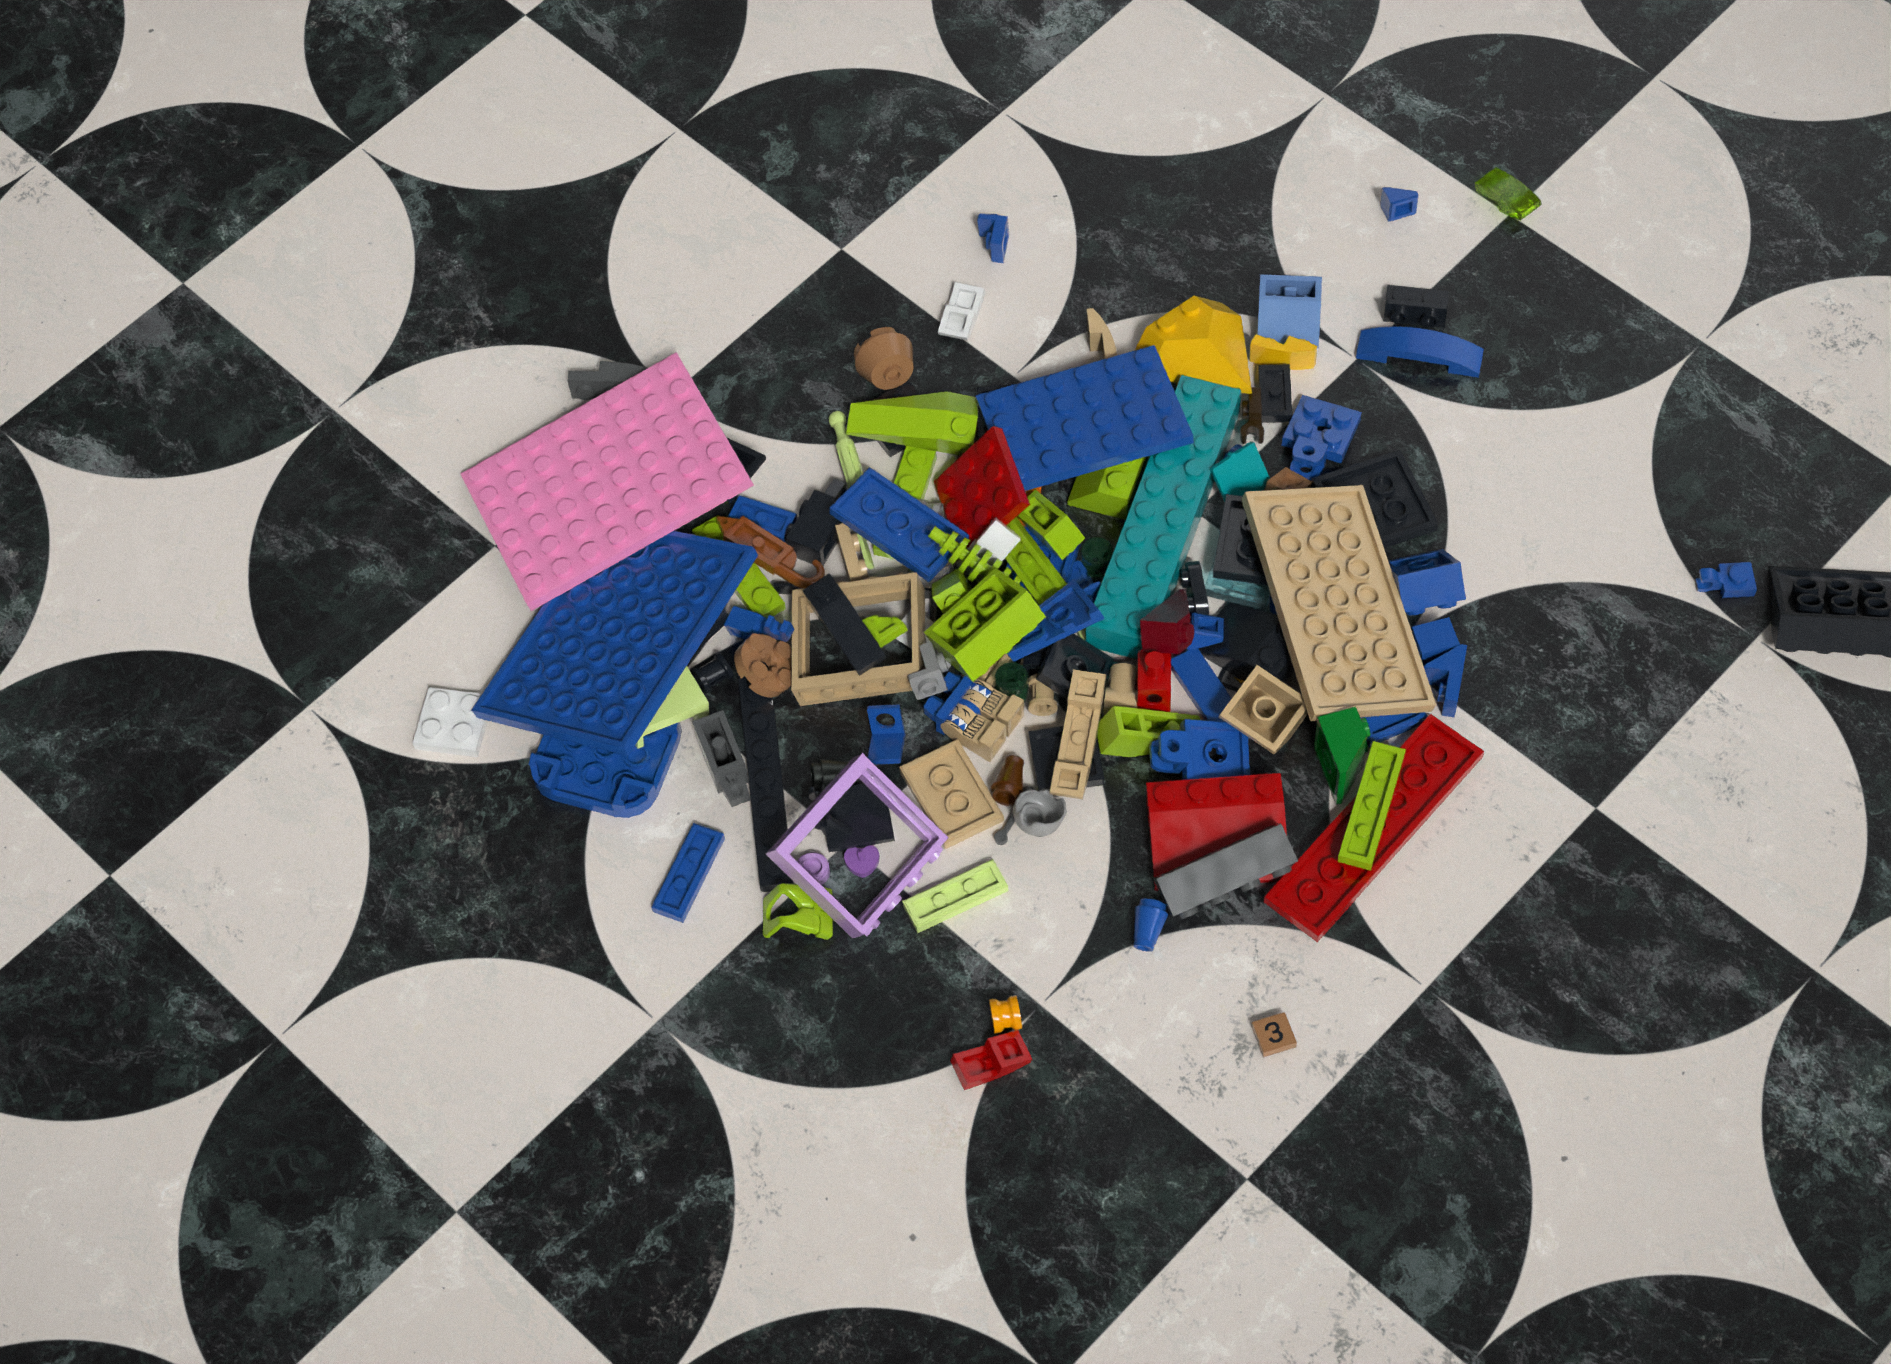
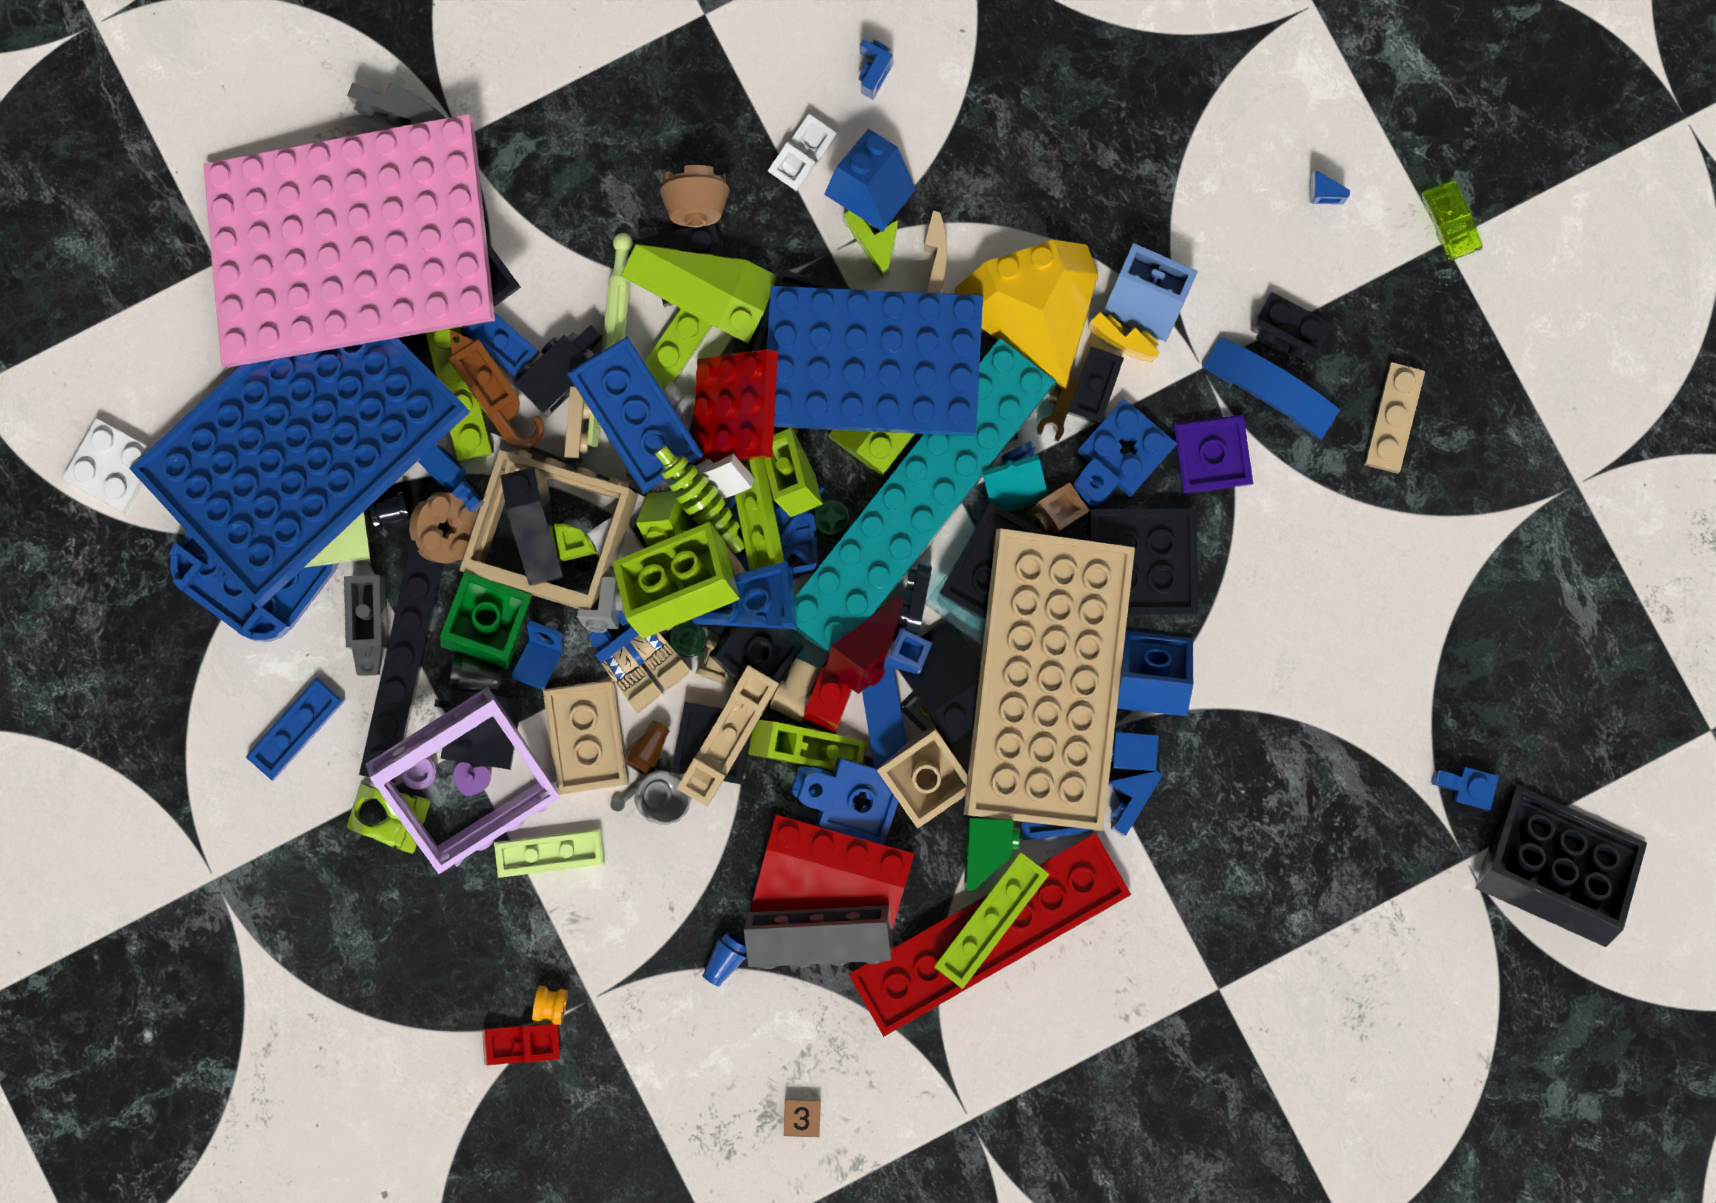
camera: 15 degrees right, 25 degrees up
(828, 723) = (485, 620): none -> green slope
(1026, 303) = (872, 181): none -> blue slope
(1047, 353) = (877, 247): none -> lime slope
(1395, 413) = (1213, 454): none -> dark purple tile
(1530, 341) = (1394, 418): none -> tan plate

